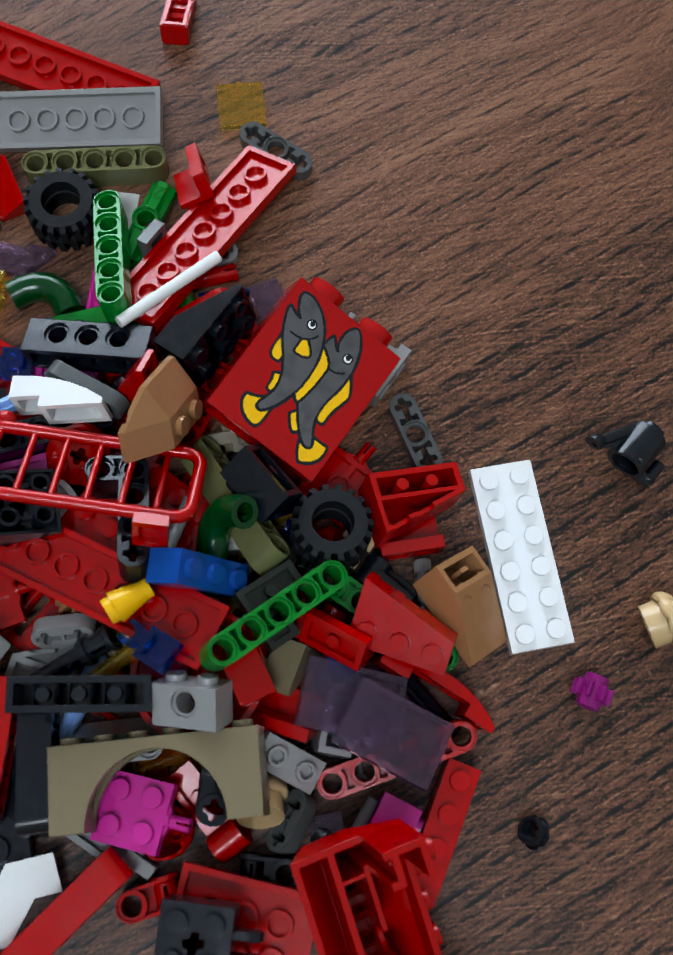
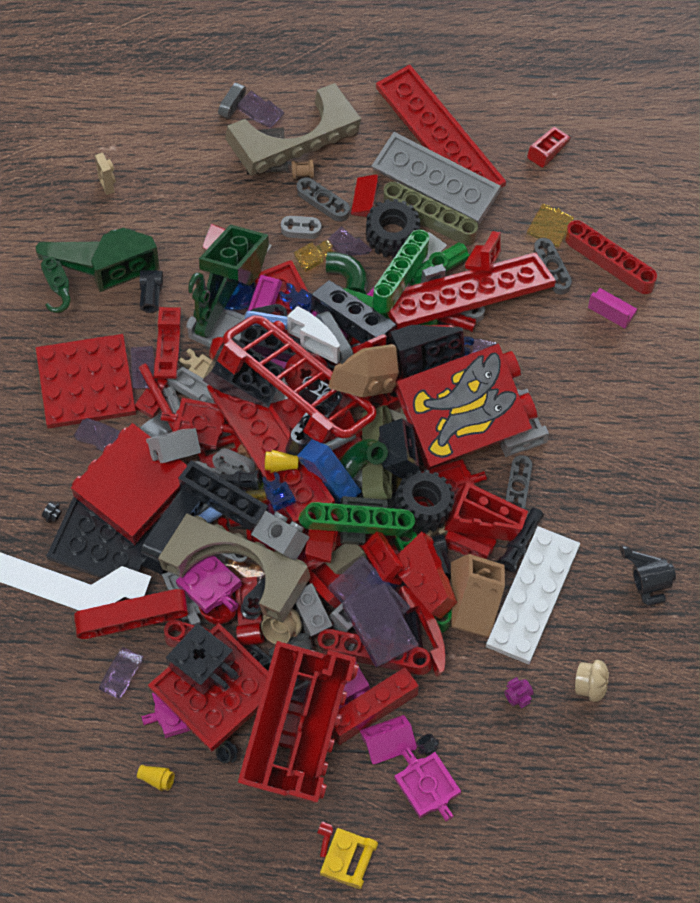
camera: 40 degrees right, 10 degrees down
(168, 289) = (419, 309): white bar -> none
(315, 103) = (616, 265): none -> red beam
(374, 161) = (612, 308): none -> dark pink panel
(465, 511) = (516, 547): none -> black pin
(483, 855) = (388, 739): none -> dark pink panel
(569, 885) = (427, 785): none -> dark pink plate

